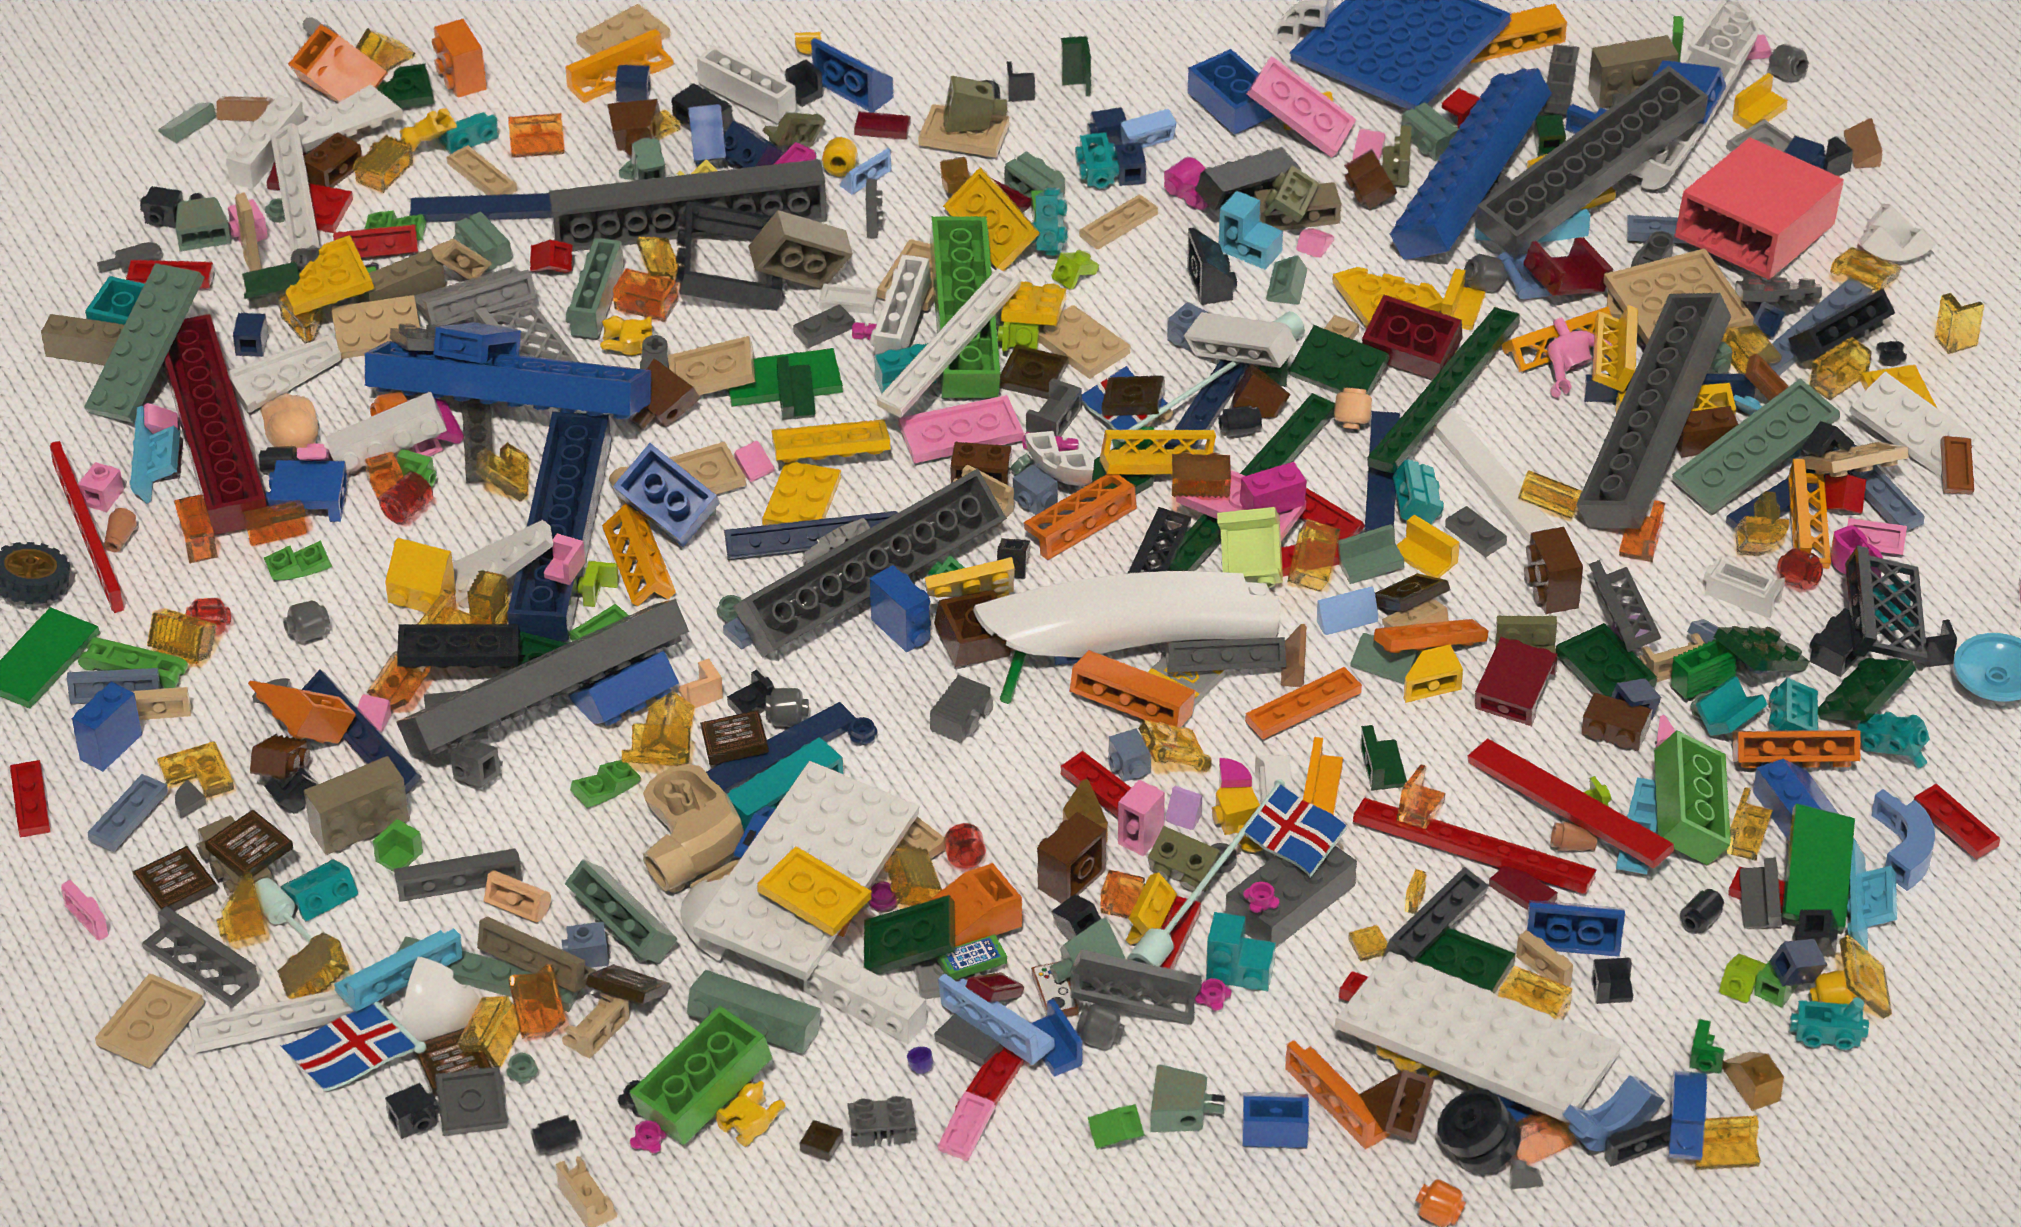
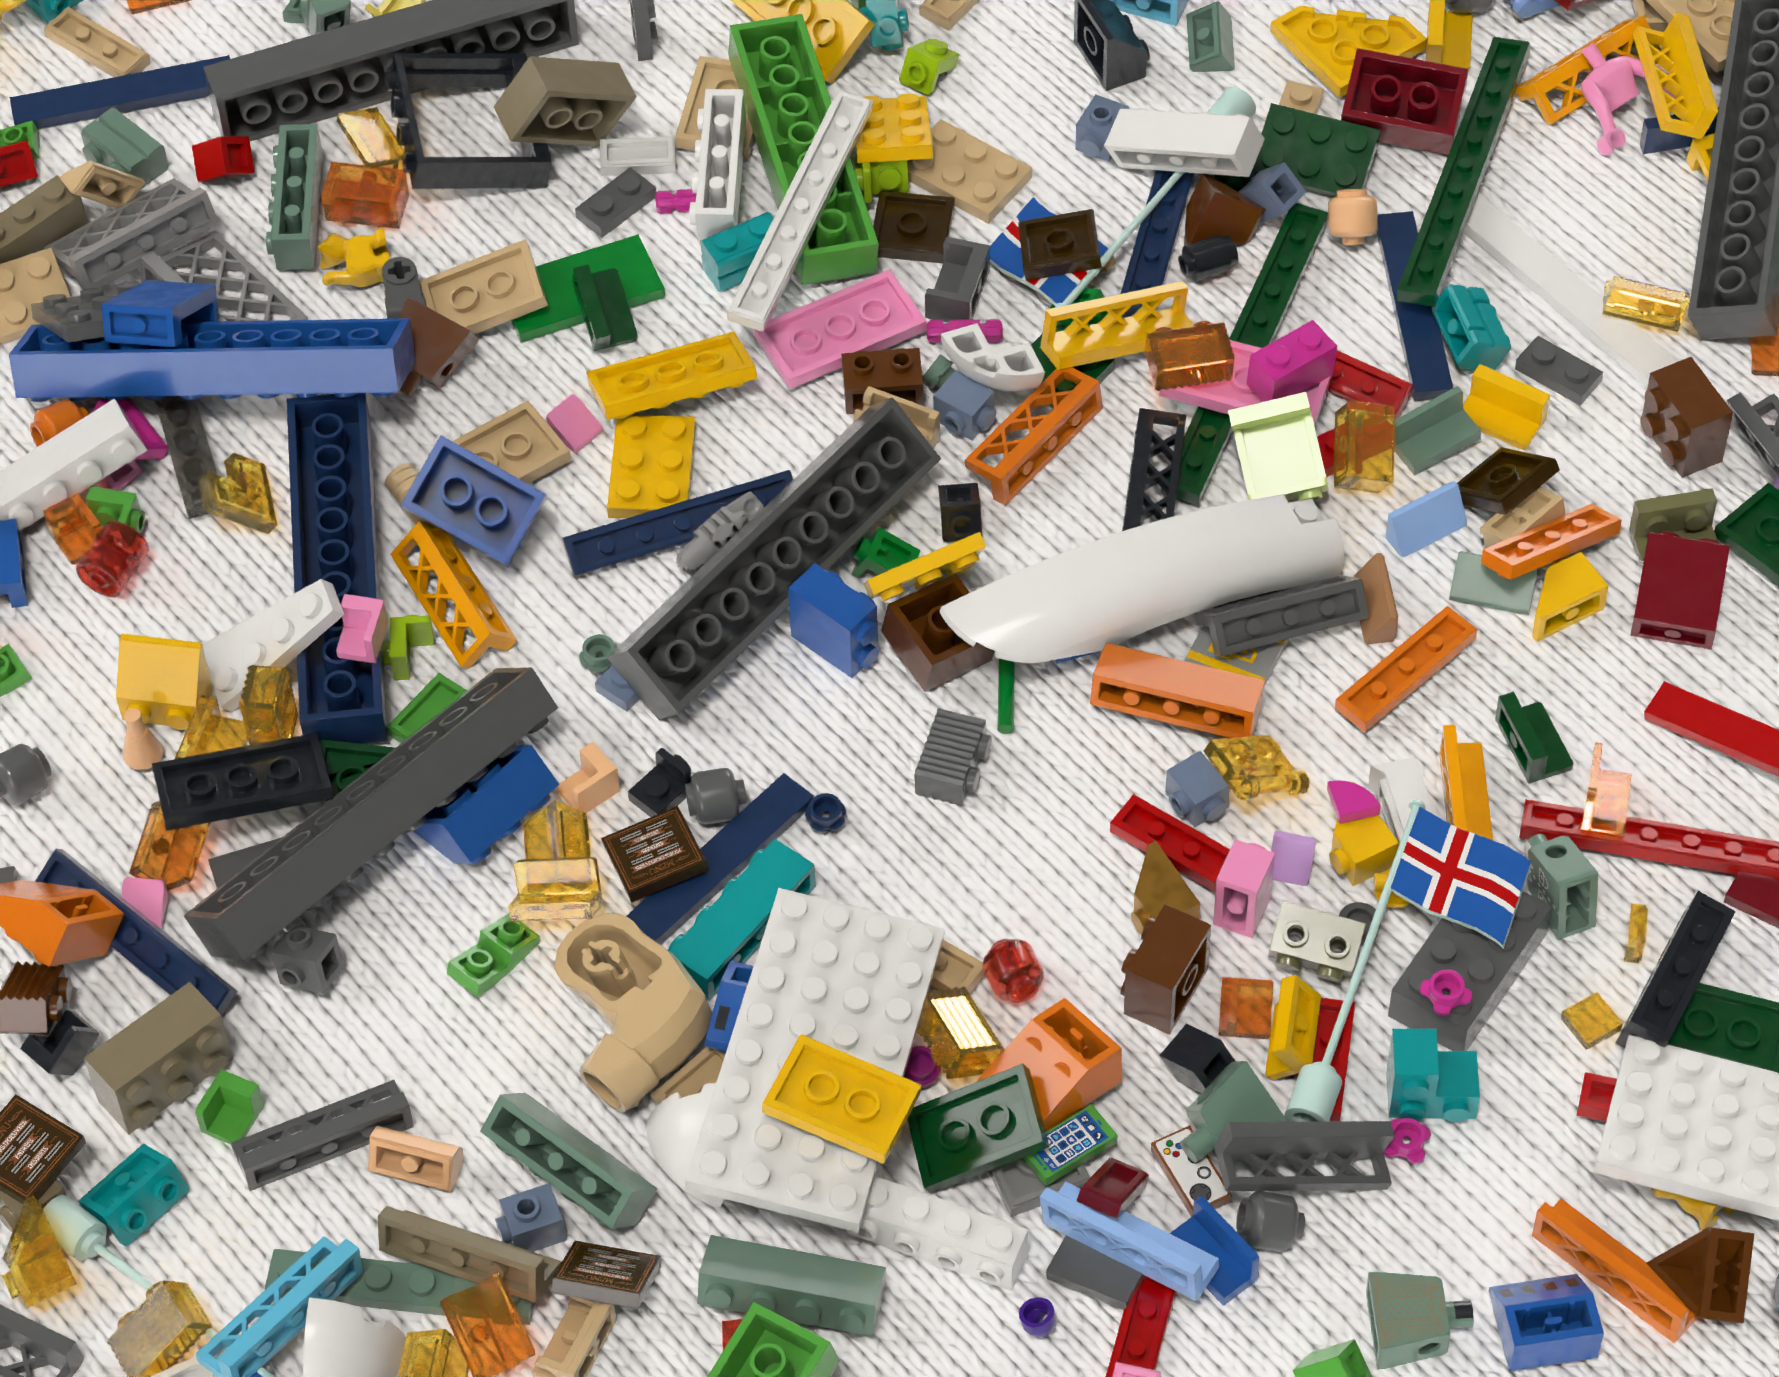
camera: 10 degrees left, 10 degrees up
(394, 611) = (140, 744): none -> light nougat cone
(1299, 383) = (1274, 190): none -> sand blue brick
(1367, 840) = (1565, 881): none -> sand green torso

